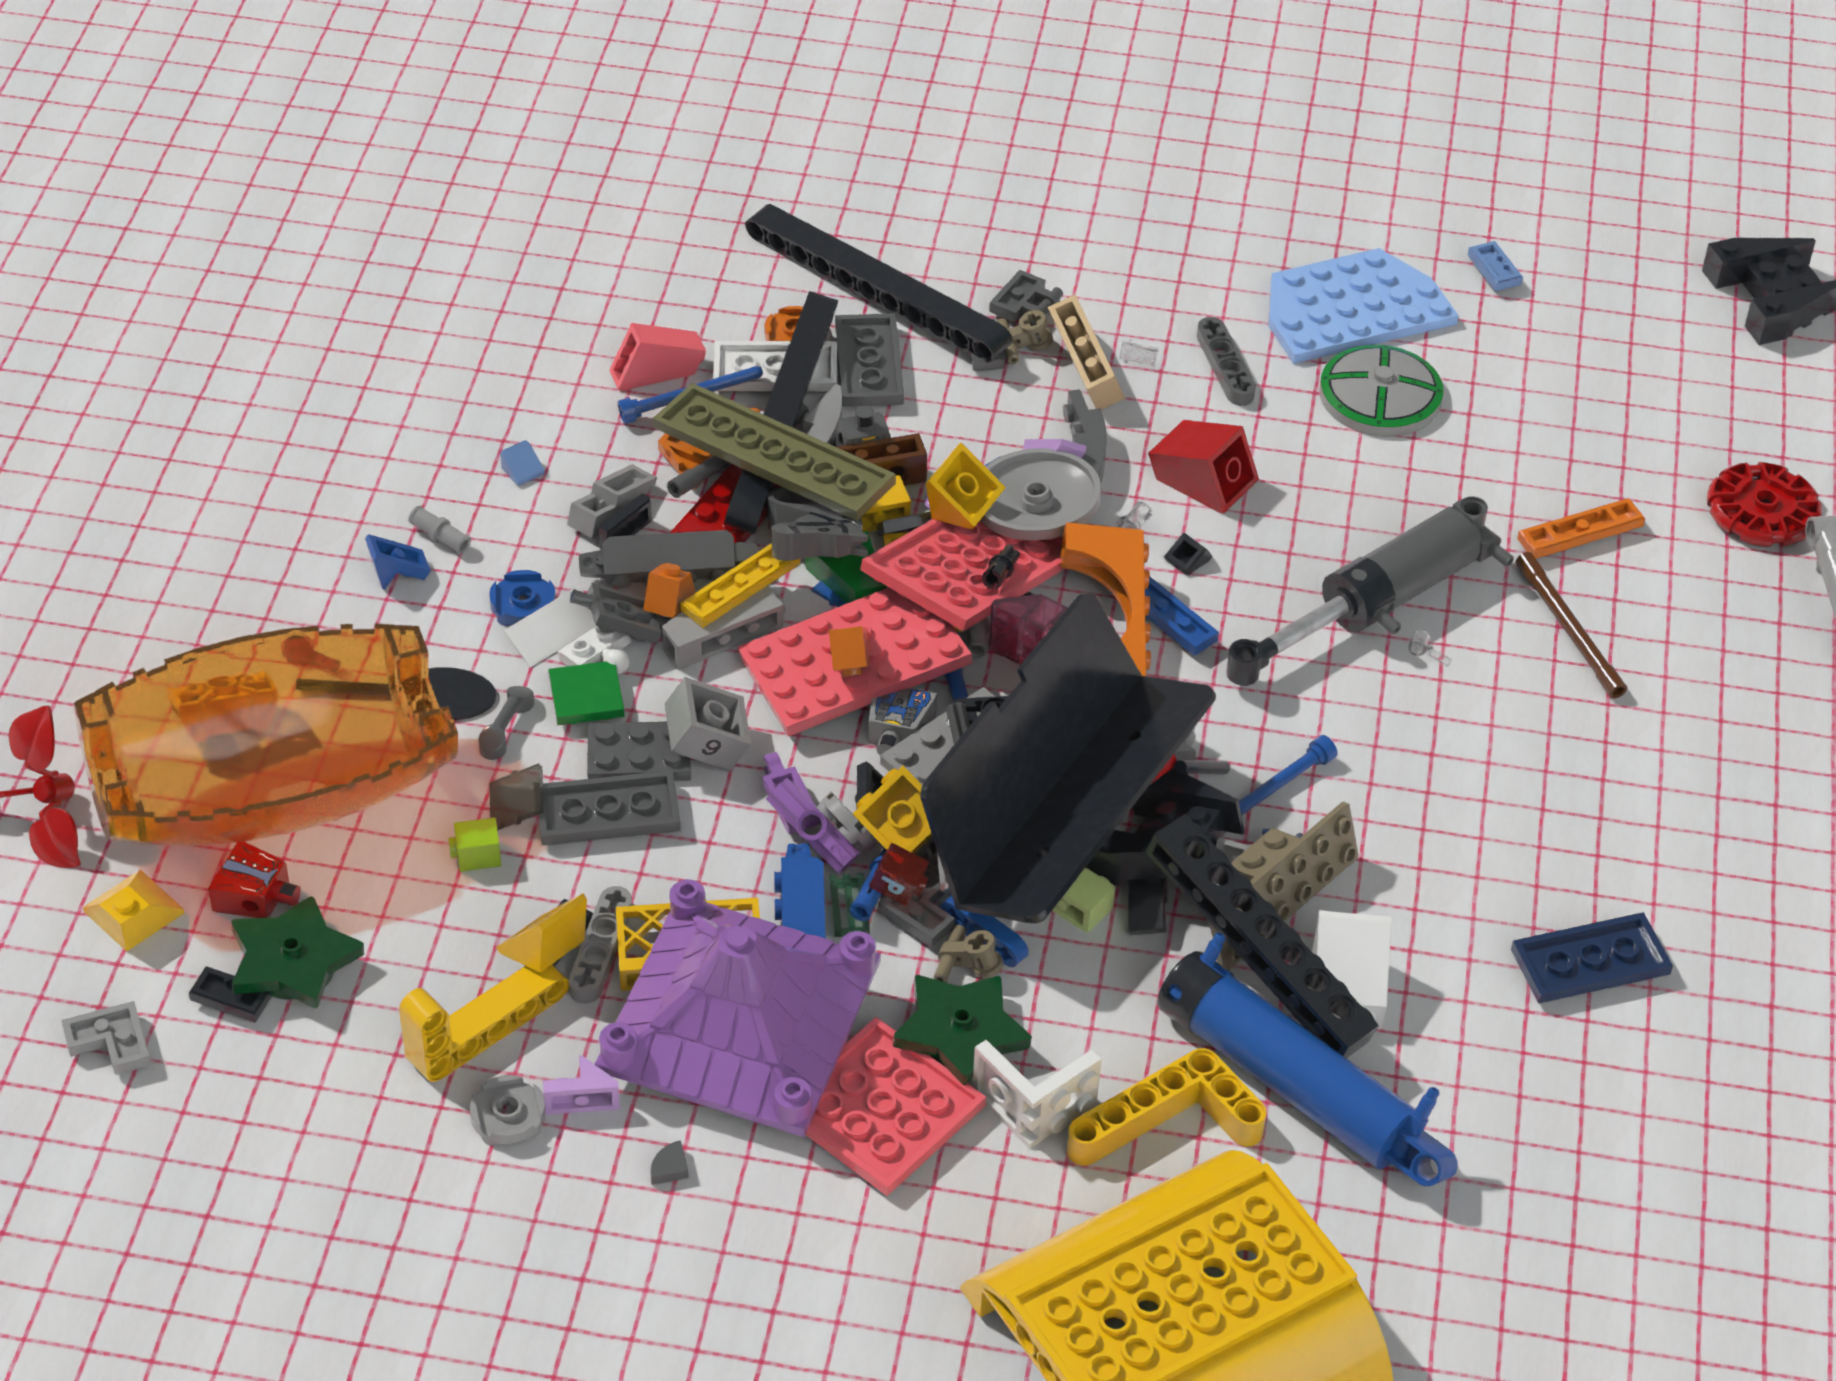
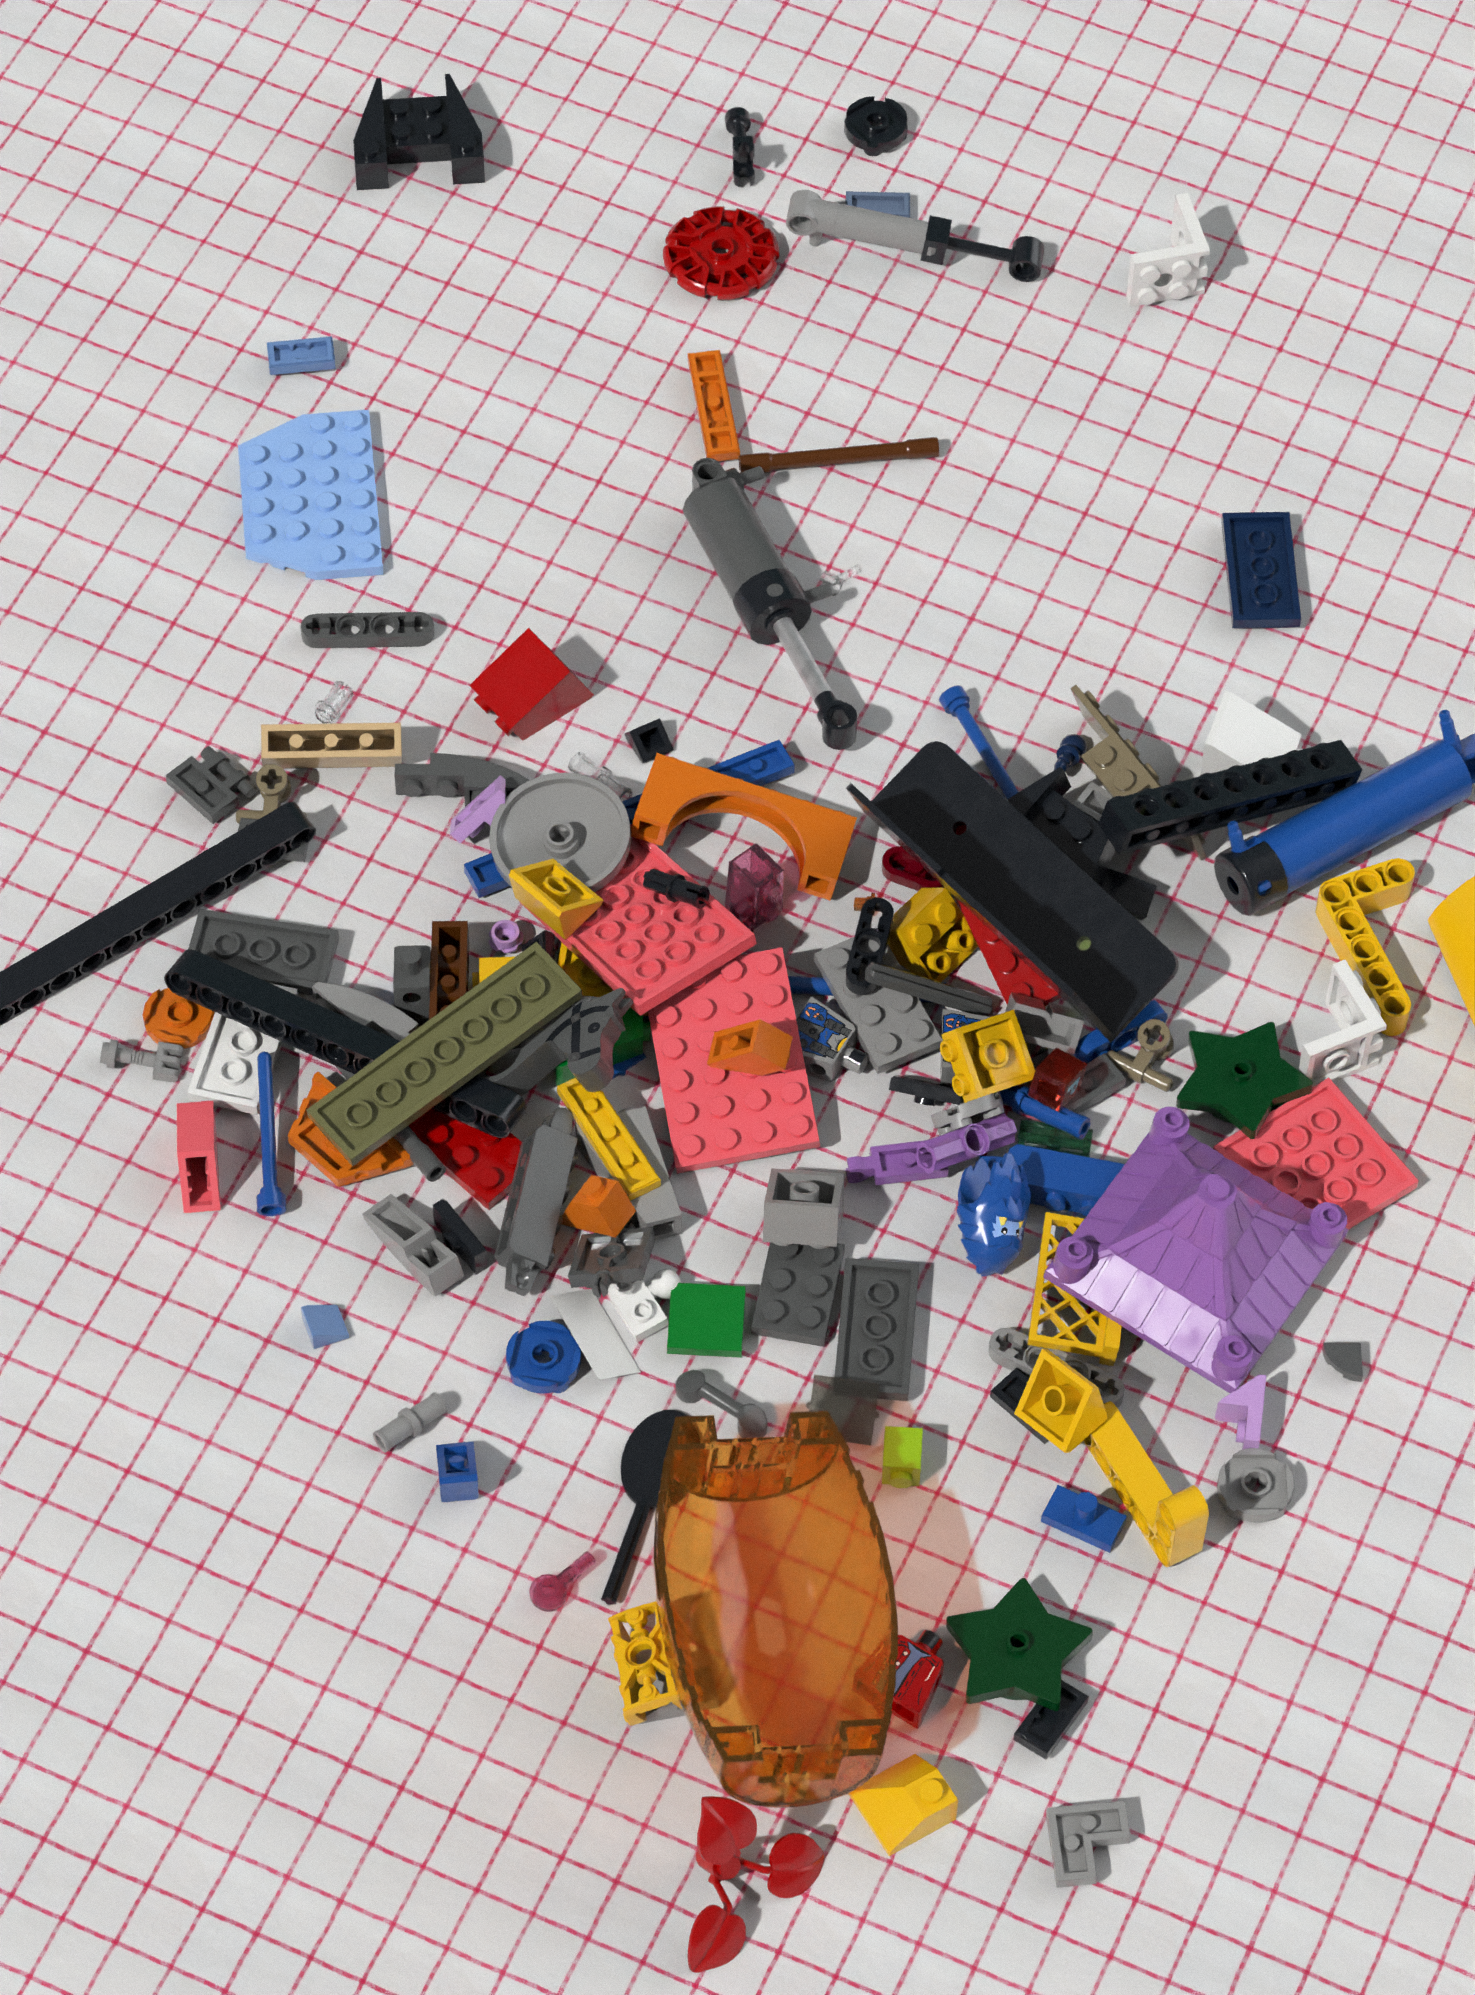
camera: 75 degrees left, 10 degrees up
(451, 981) = (1083, 1518): none -> blue tile
(737, 856) = (993, 1213): none -> blue head
(742, 297) = (165, 1061): none -> light grey hinge
(1381, 390) = (455, 510): light grey dish -> none

